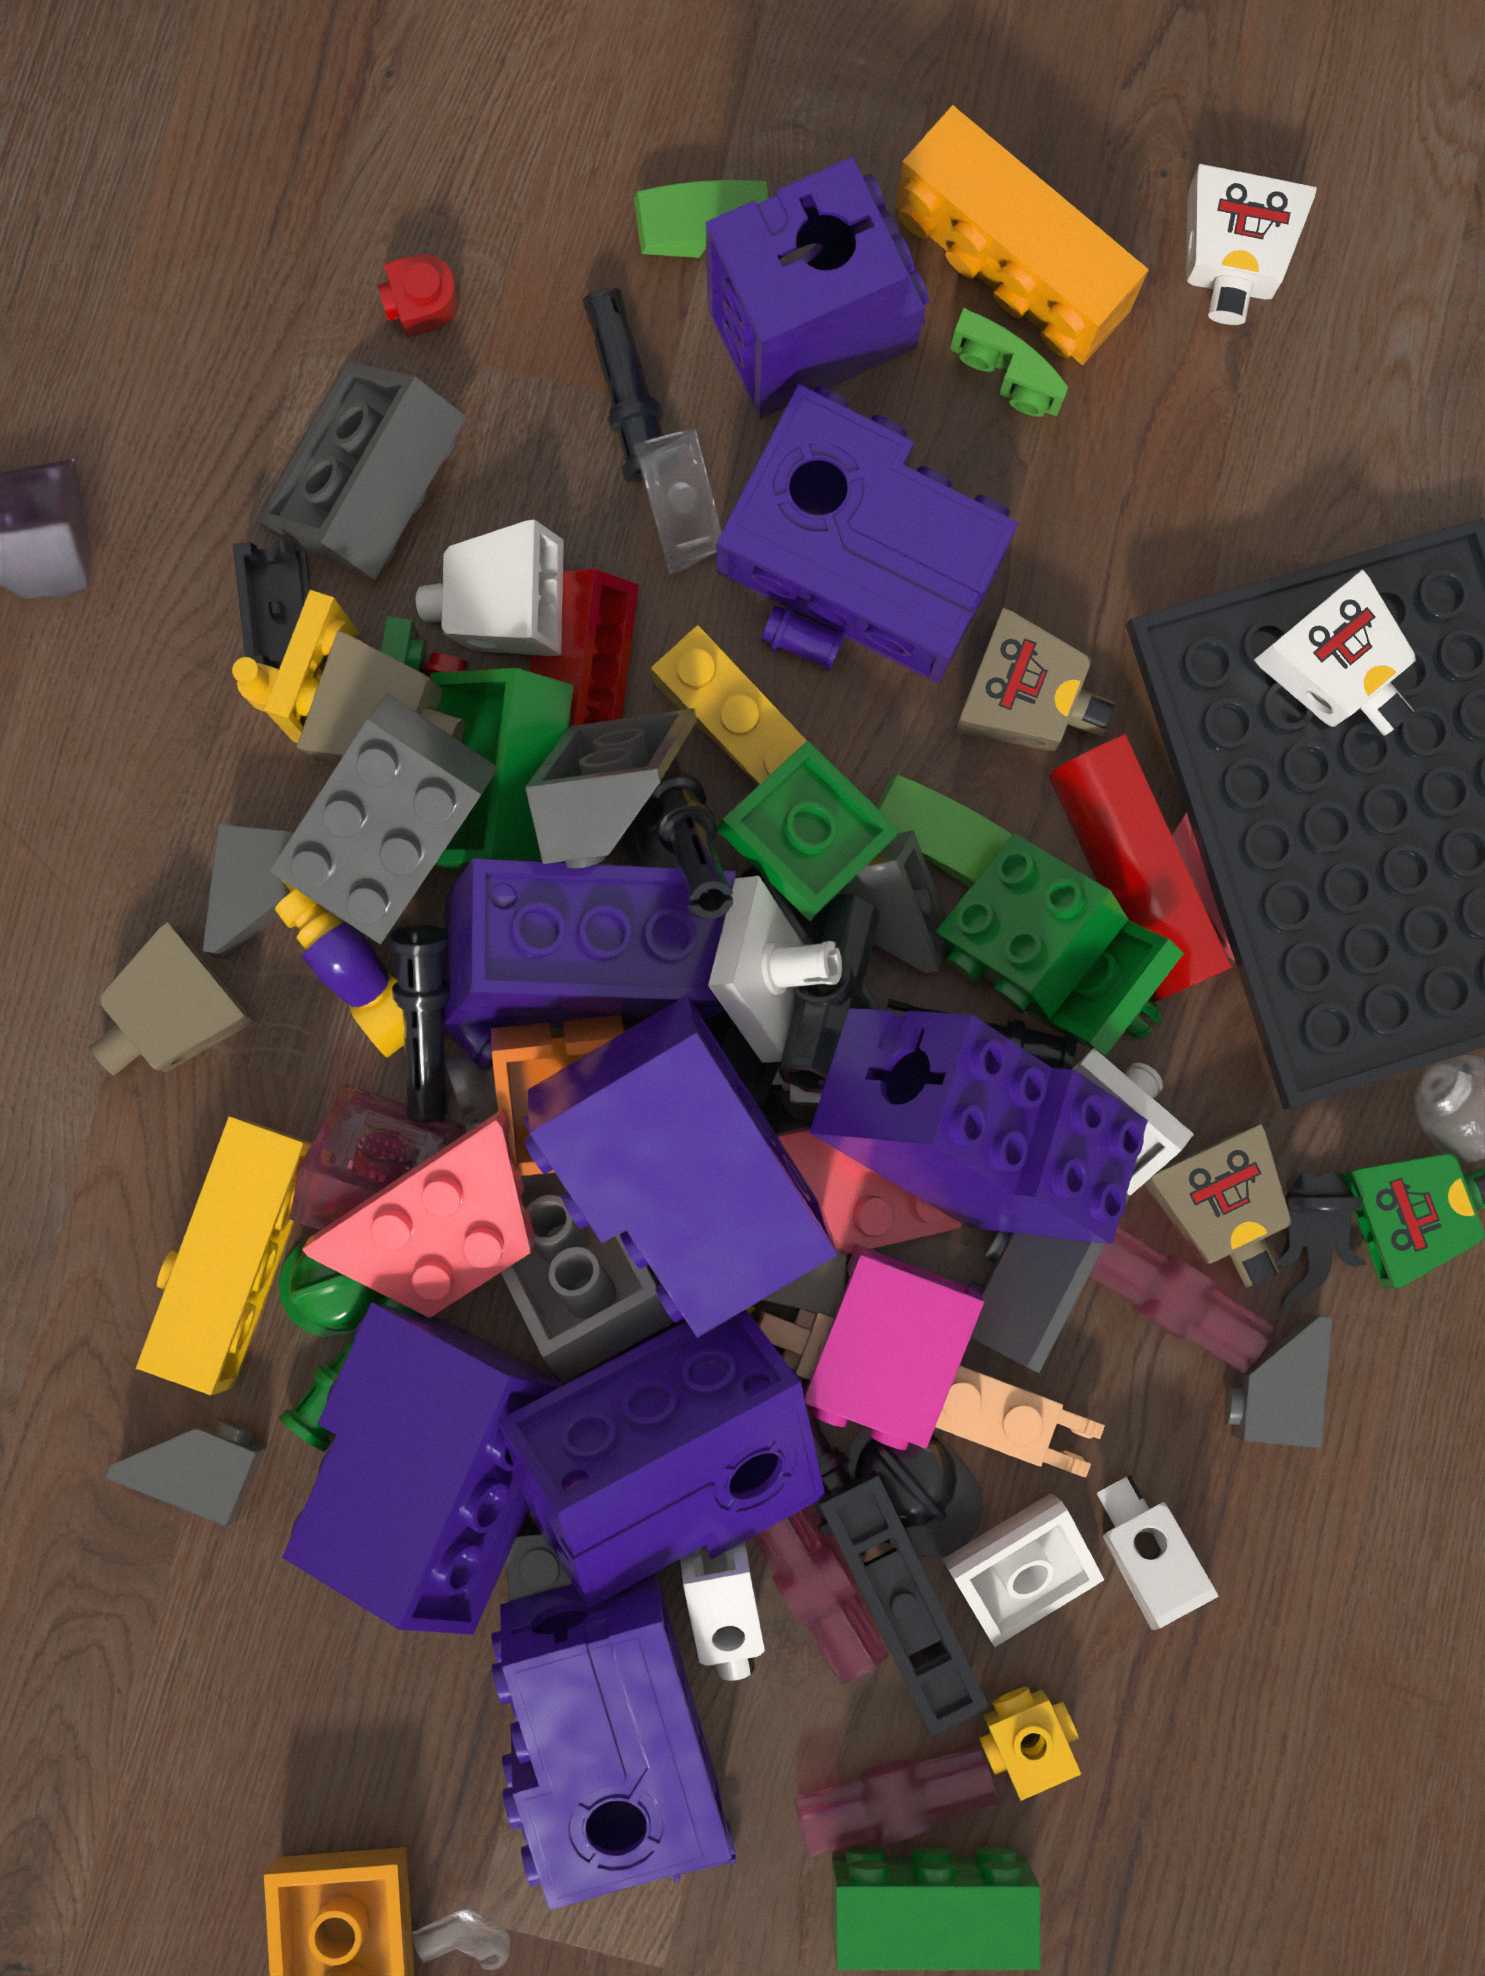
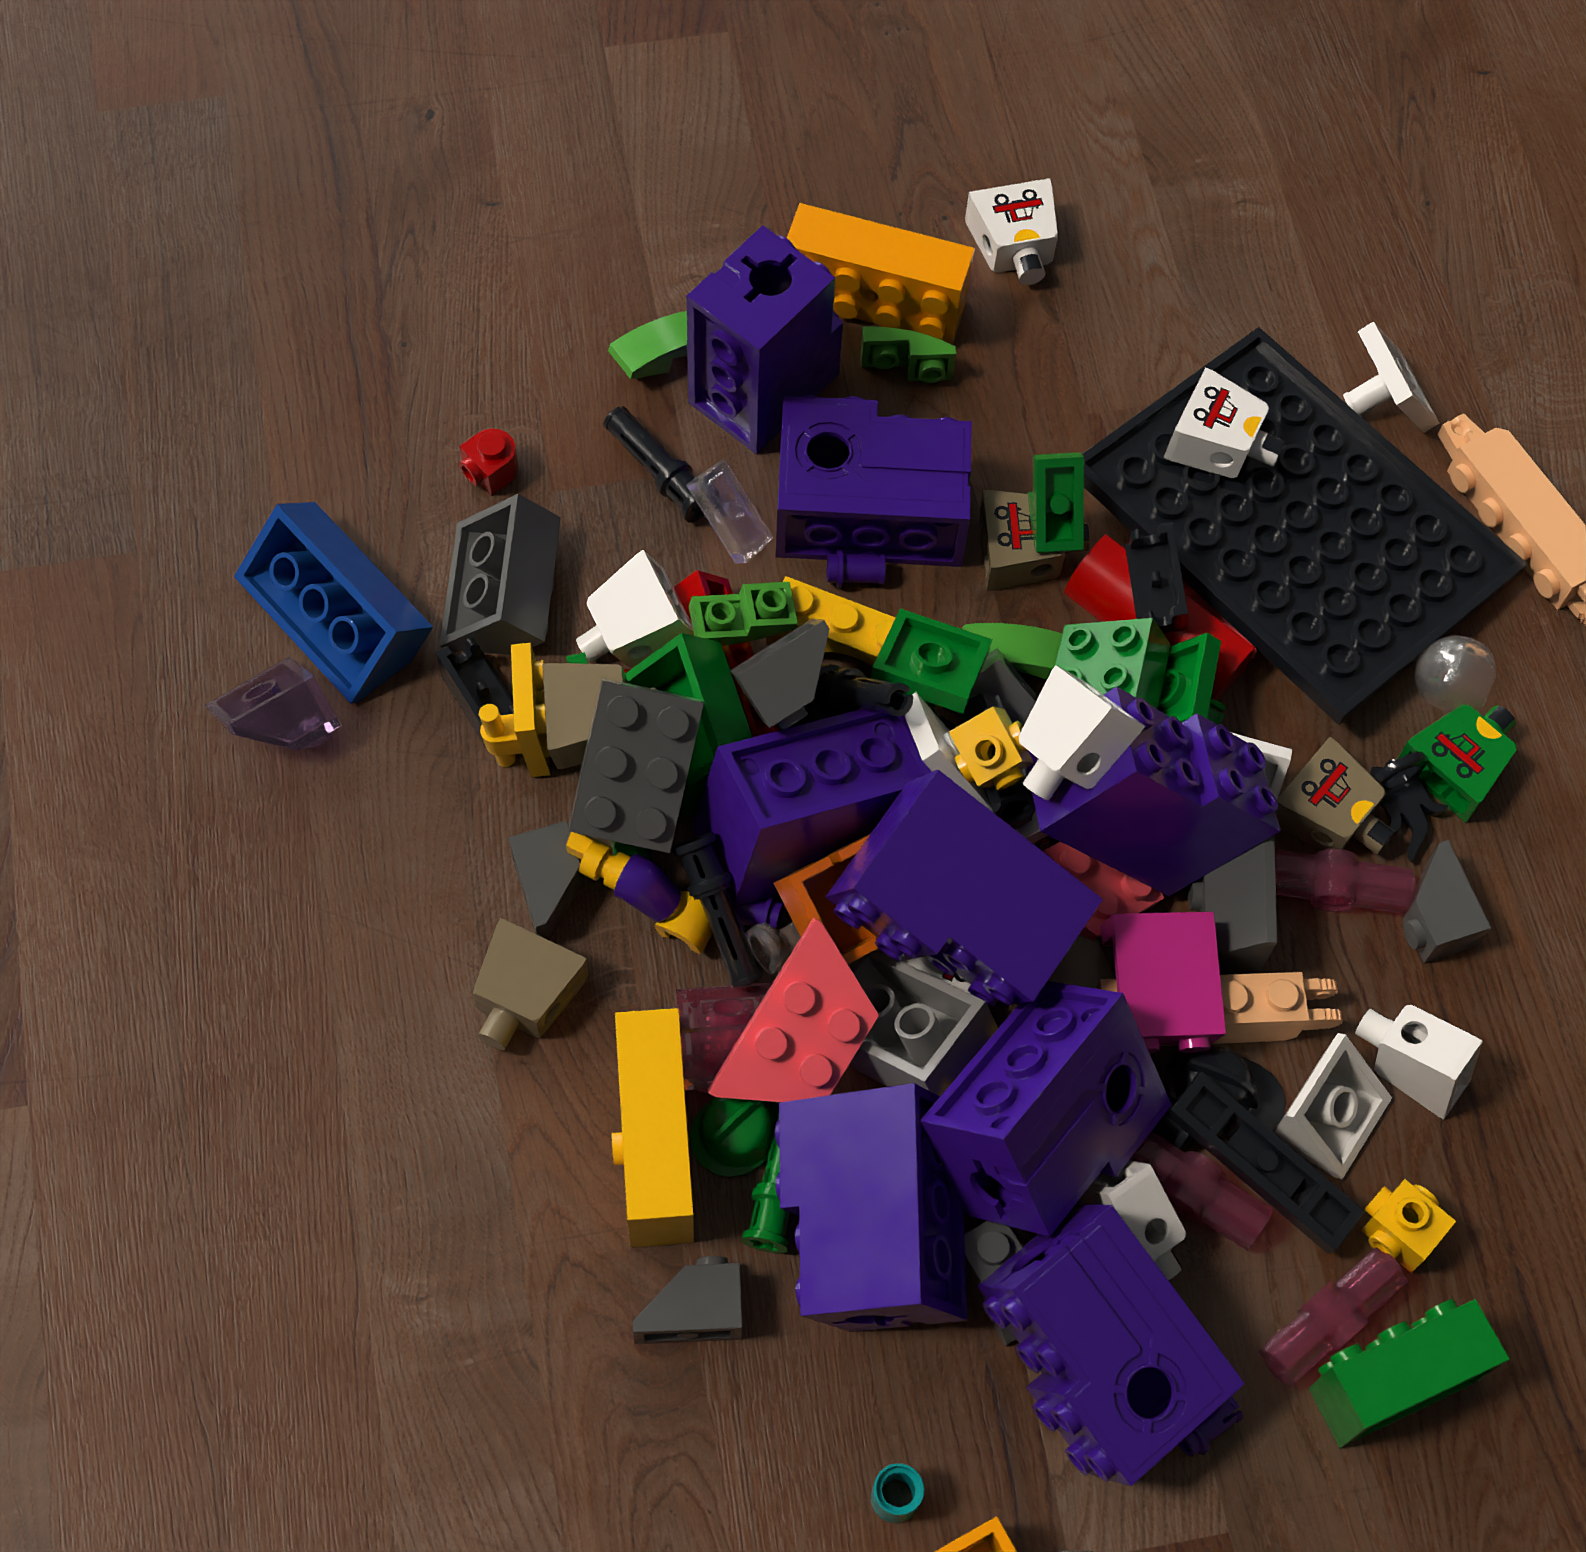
camera: 25 degrees left, 20 degrees down
(149, 407) = (331, 599): none -> blue slope
(304, 1793) = (901, 1473): none -> teal beam
(618, 659) = (751, 615): none -> bright green slope
(800, 1006) = (976, 743): none -> yellow brick
(892, 1049) = (1074, 734): none -> white torso
(1077, 677) = (1057, 502): none -> green slope
(1149, 834) = (1157, 578): none -> black hinge

